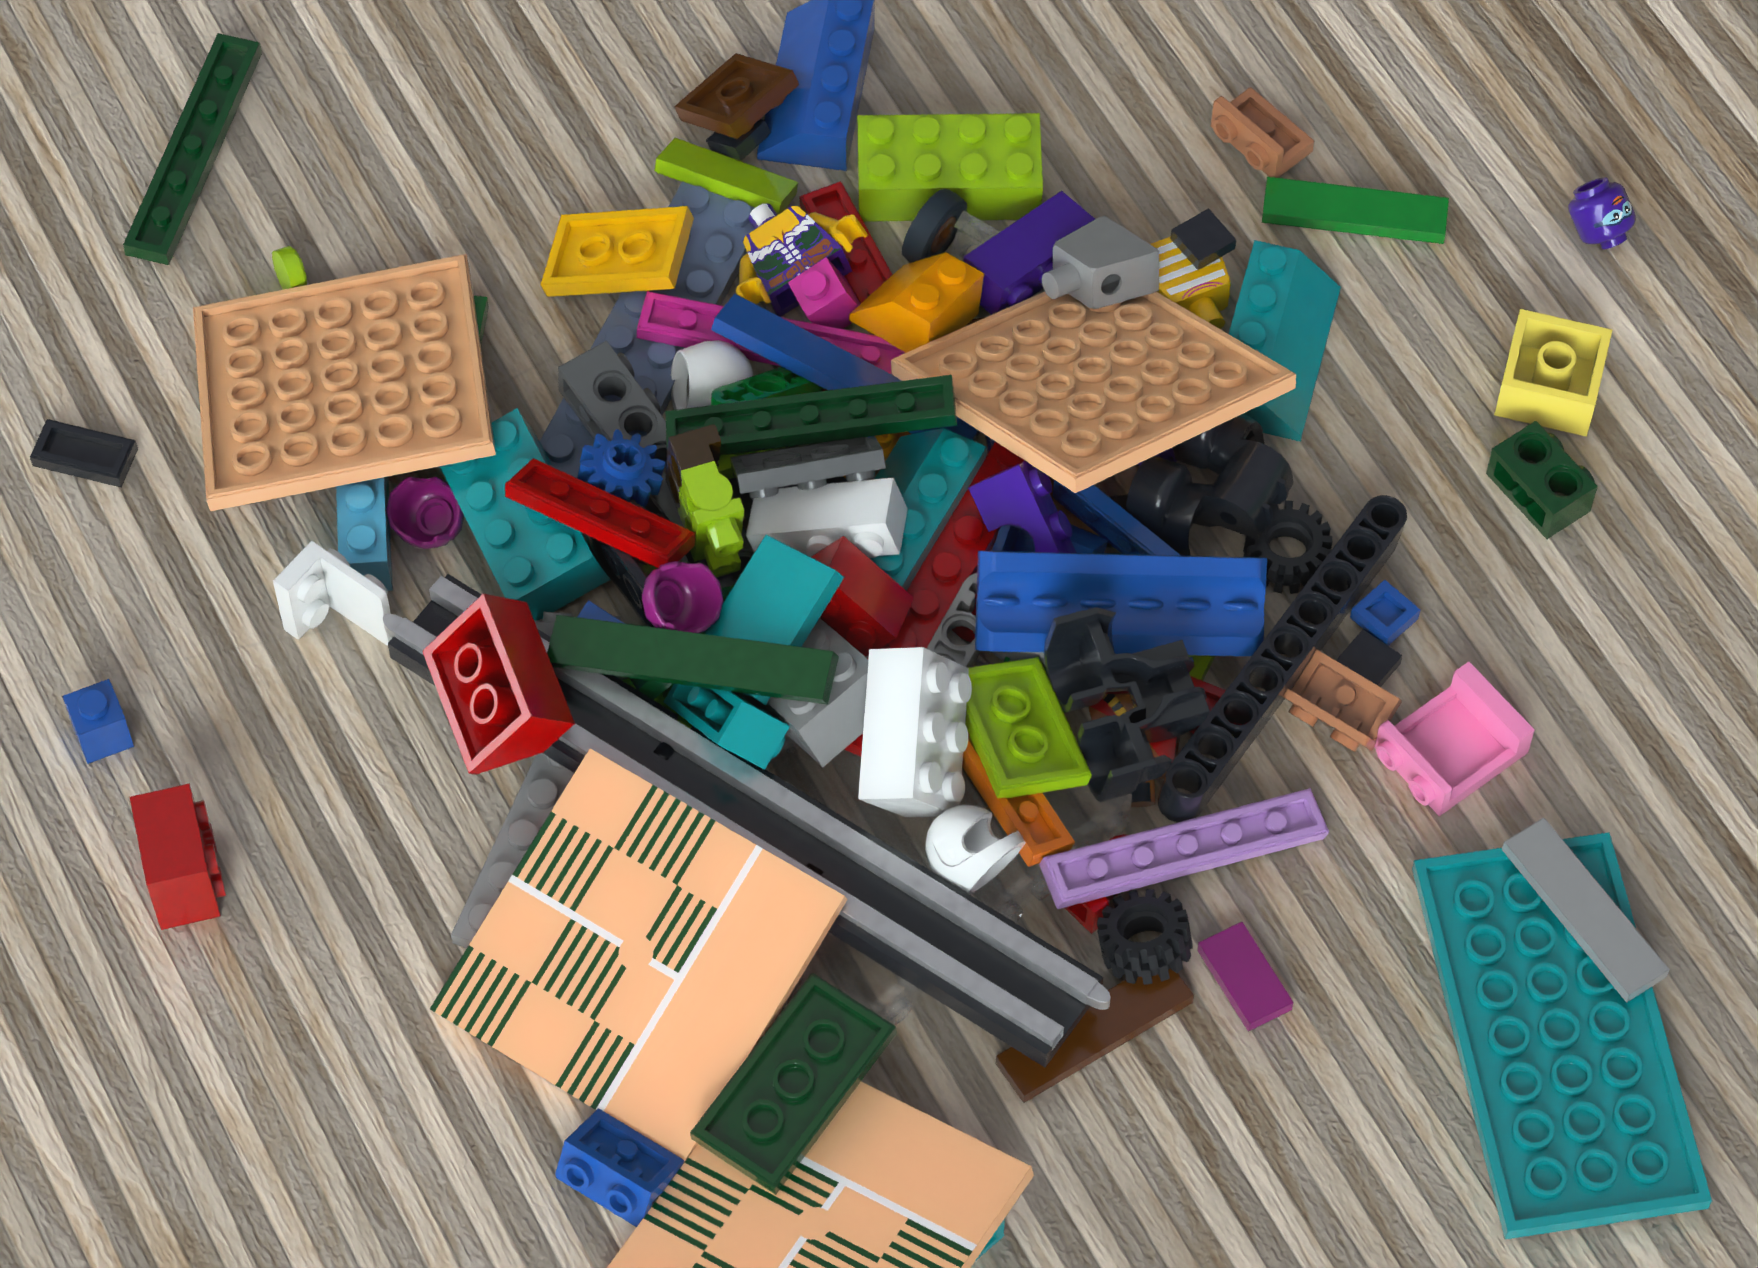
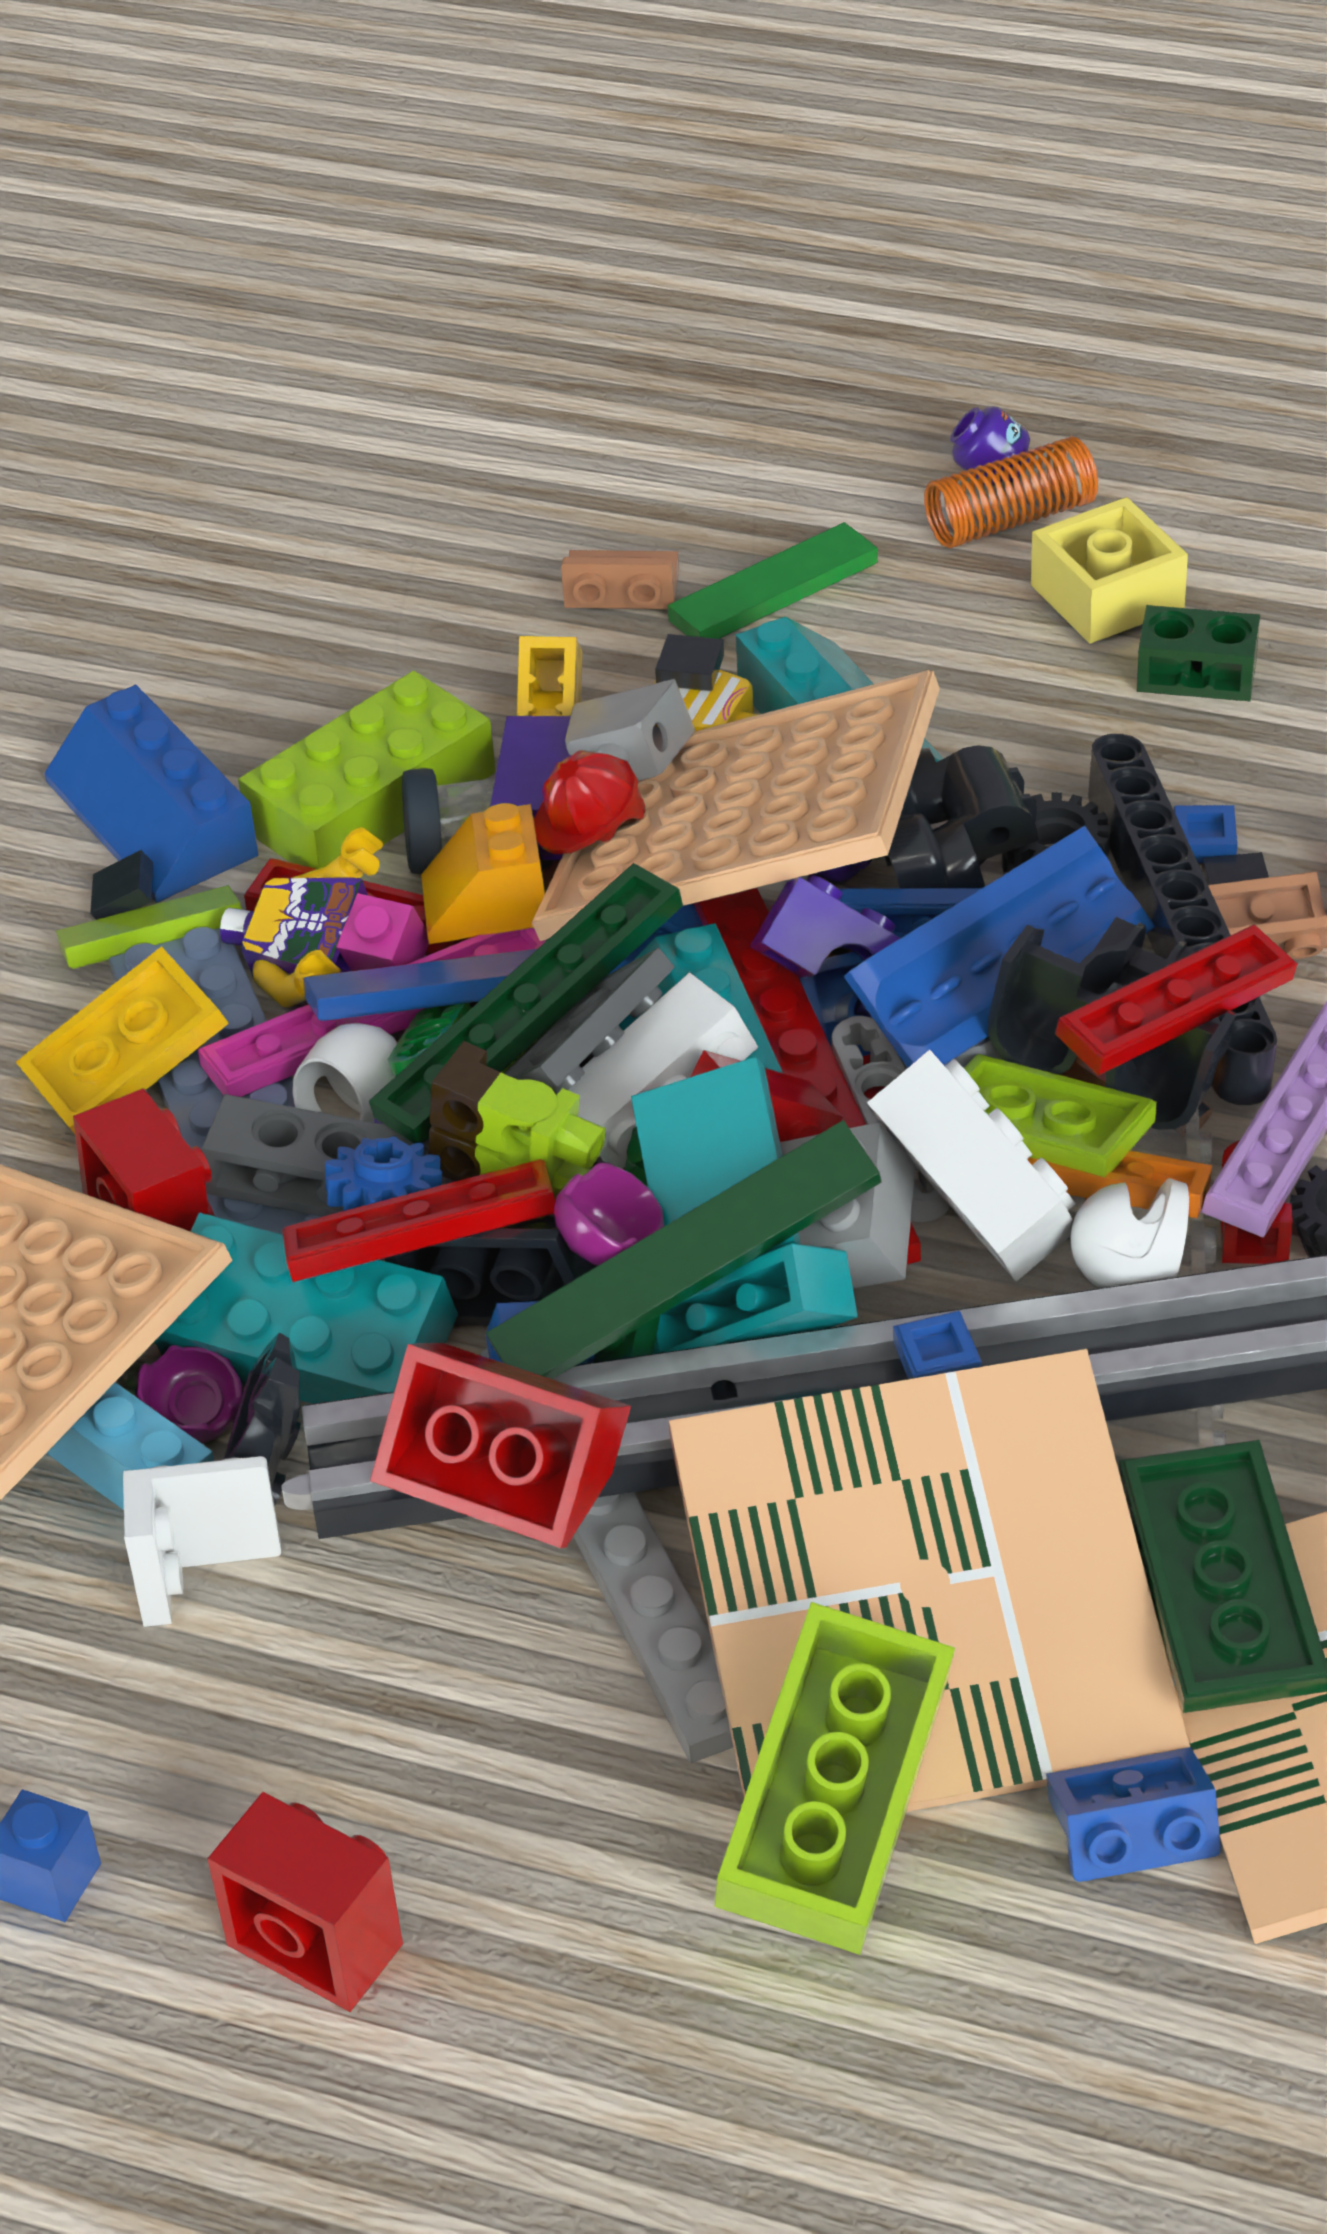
camera: 40 degrees left, 15 degrees down
(423, 568) = (269, 1411): none -> black plate
(472, 1017) = (834, 1778): none -> lime brick
(527, 357) = (141, 1162): none -> red brick
(736, 95) = (85, 852): reddish brown plate -> none
(778, 826) = (935, 1345): none -> blue tile
(1011, 300) = (586, 801): none -> red piece
(1120, 183) = (548, 675): none -> yellow arch
(1139, 725) = (1175, 999): none -> red tile
(1627, 279) = (1061, 477): none -> orange piece

